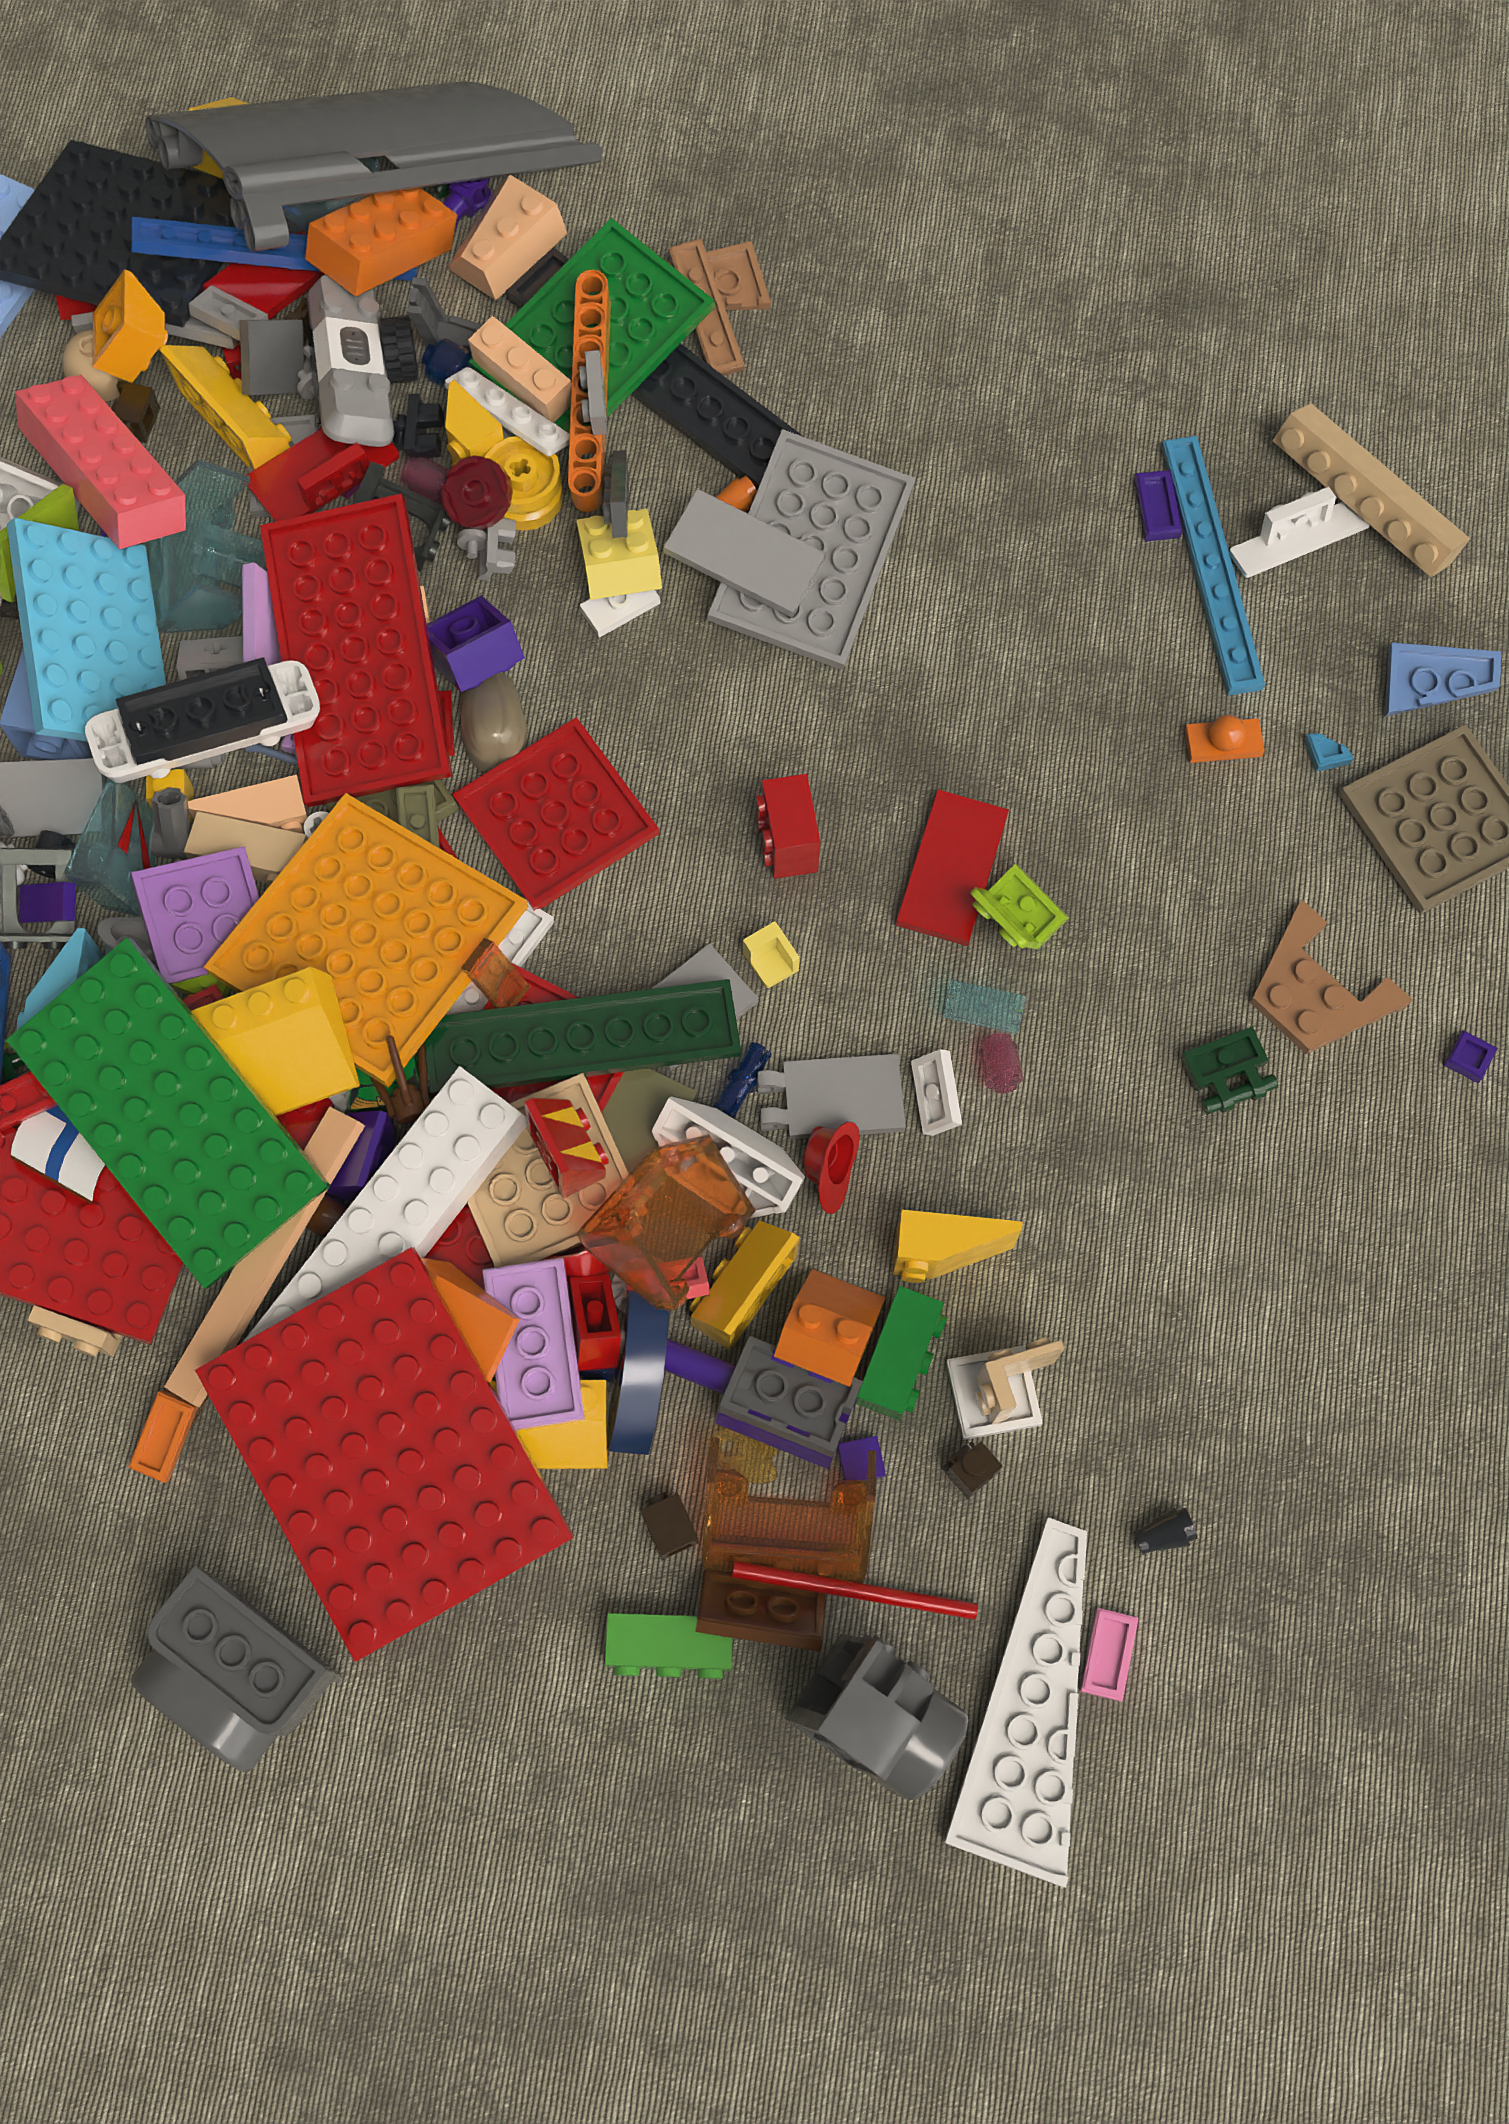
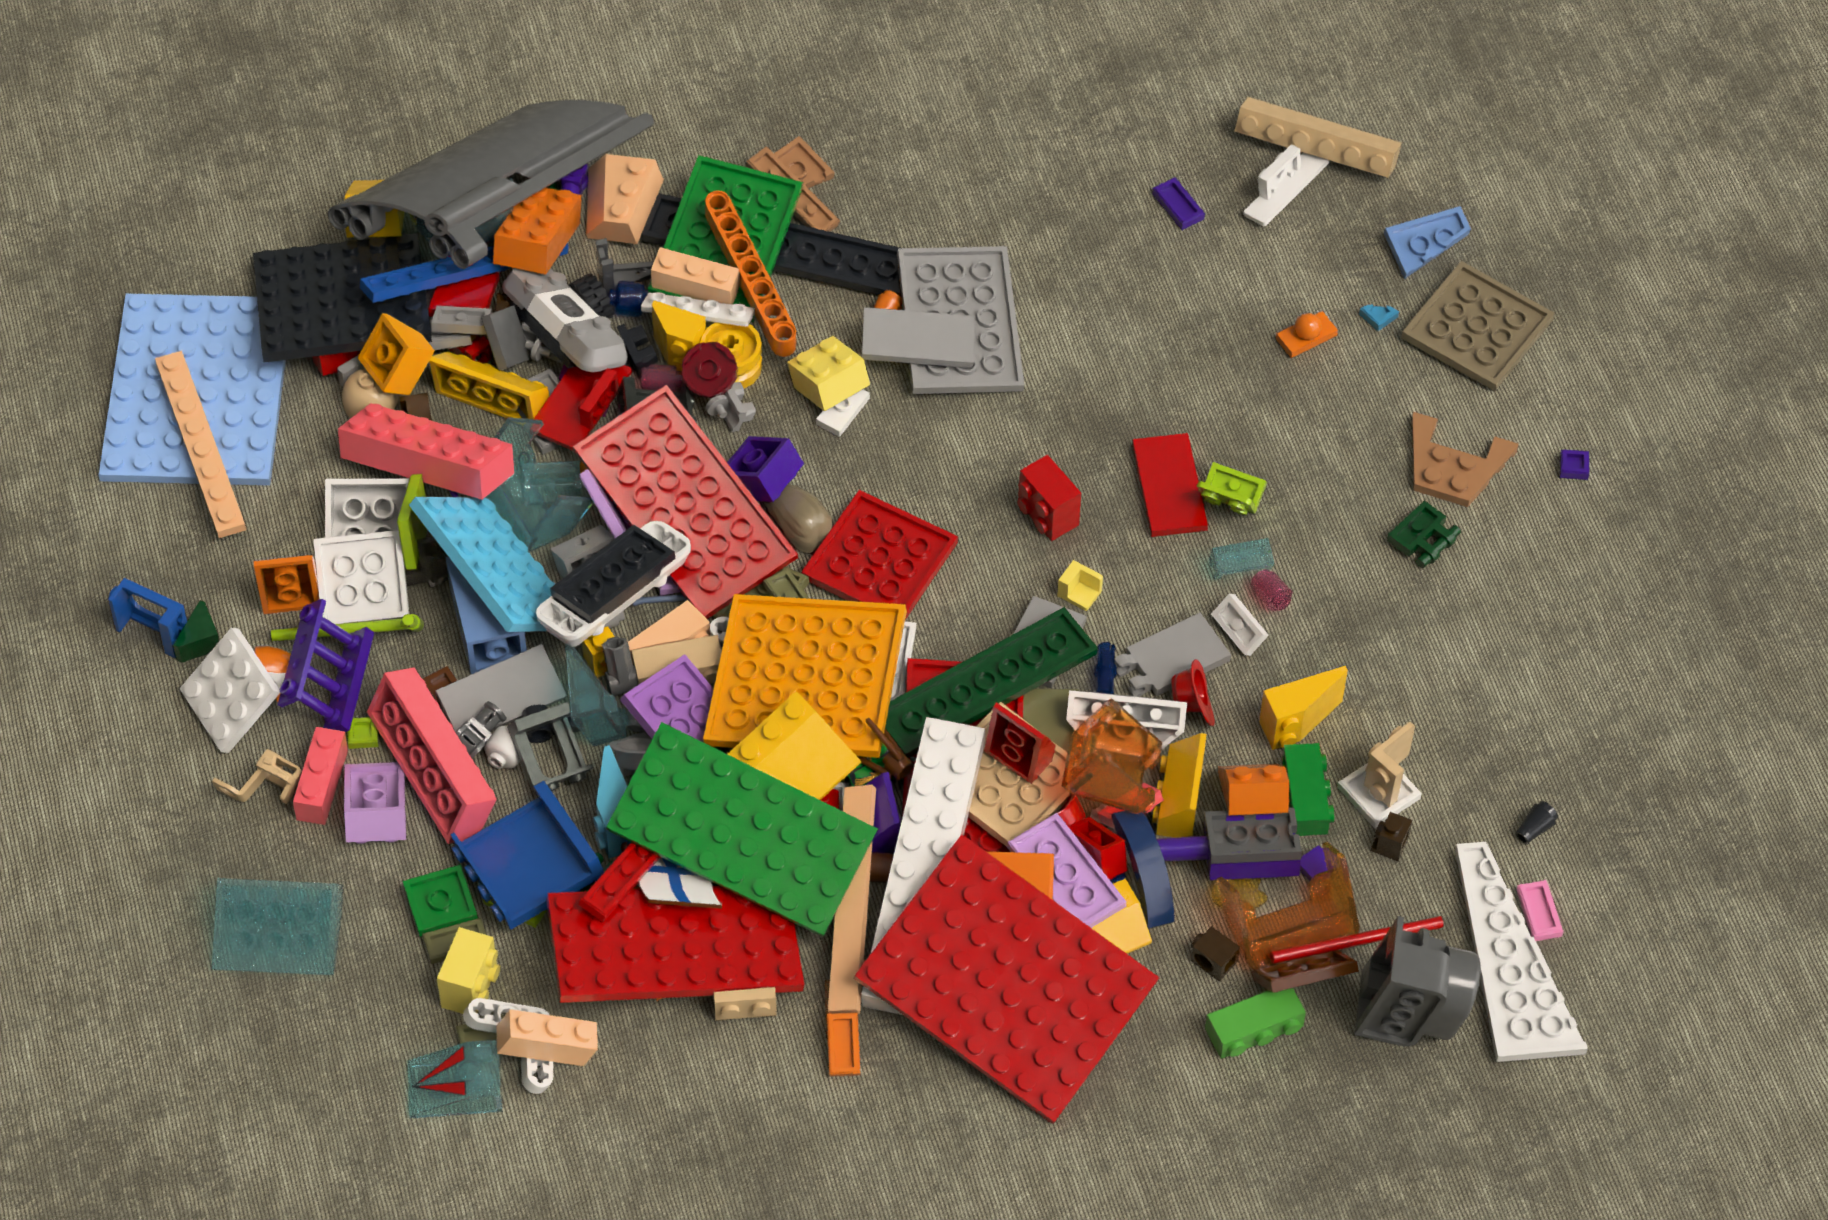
camera: 25 degrees left, 15 degrees down
(47, 902) = (561, 749): dark purple tile -> none
(228, 1671) = (982, 1146): dark grey brick -> none
(495, 975) = (909, 661): clear orange tile -> none
(592, 379) = (767, 274): light grey plate -> none
(617, 494) = (814, 331): dark grey plate -> none
(1213, 567) = (1238, 228): dark azure tile -> none

